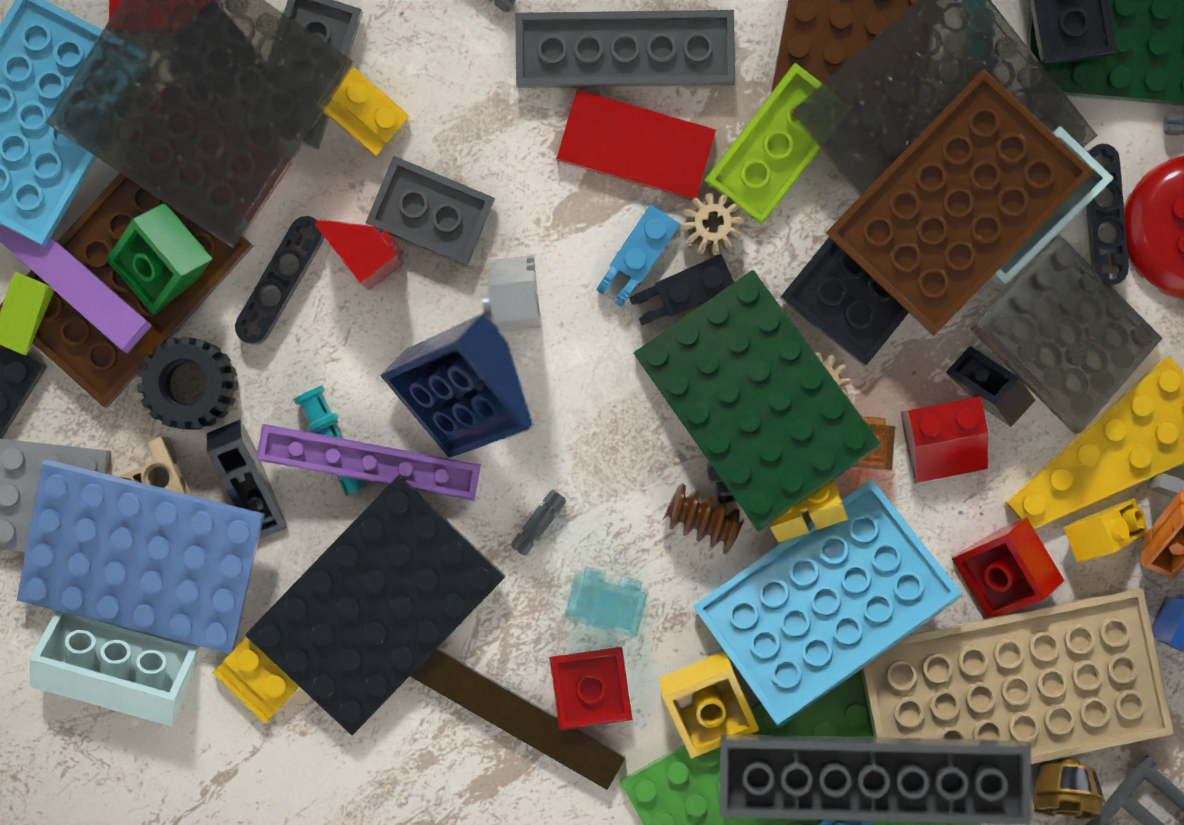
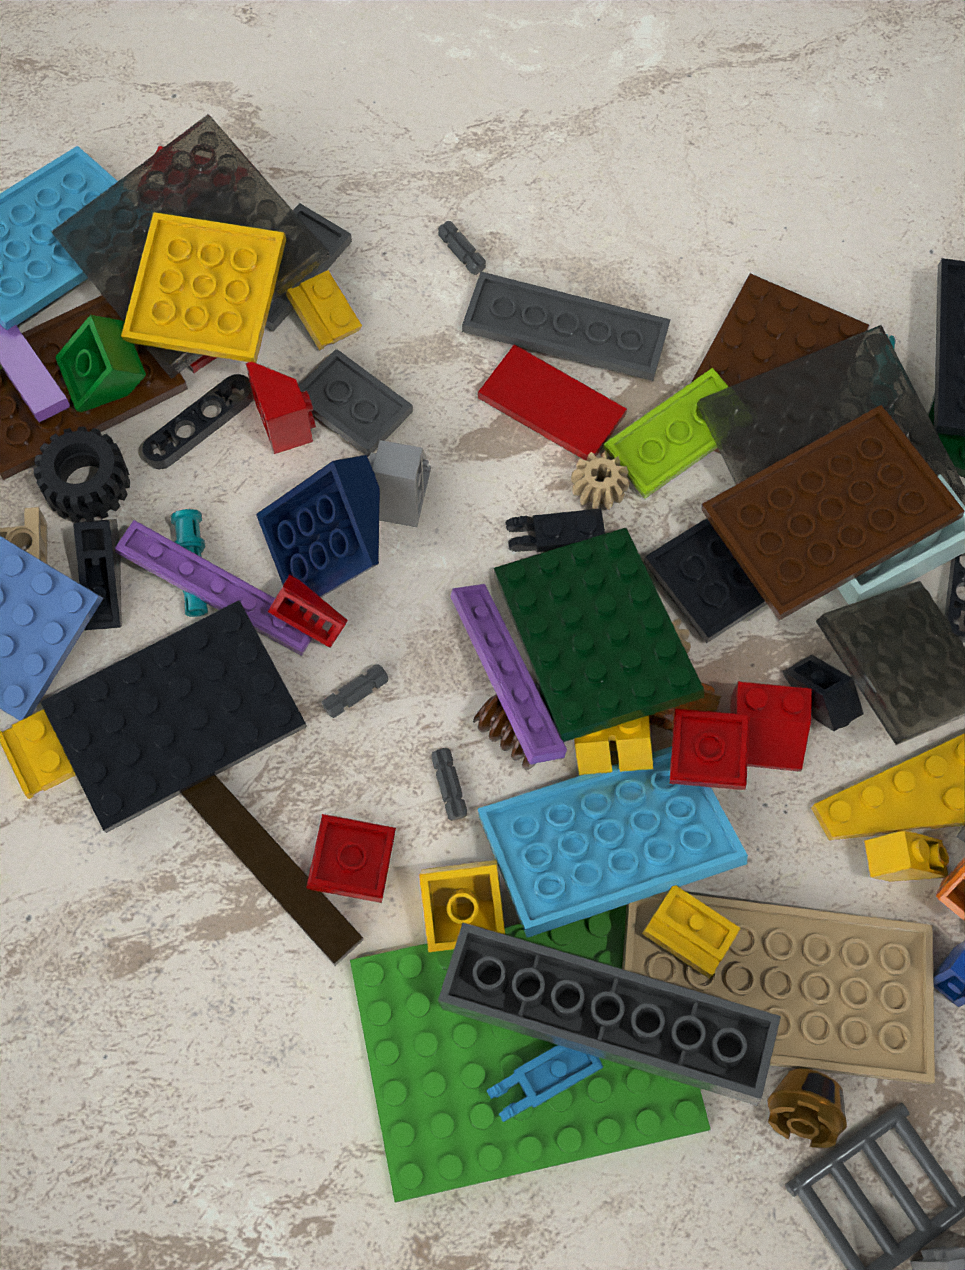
camera: 15 degrees right, 20 degrees down
(238, 145) = (204, 287): none -> yellow plate
(466, 465) = (305, 597): none -> red slope
(607, 602) = (394, 771): clear light blue brick -> none
(640, 251) = (526, 489): dark azure hinge -> none
(658, 587) = (449, 784): none -> dark grey axle
(682, 468) = (508, 674): none -> medium lavender tile
(899, 490) = (710, 749): none -> red tile
(926, 674) = (691, 931): none -> yellow plate
(1008, 569) = (800, 865): red slope -> none

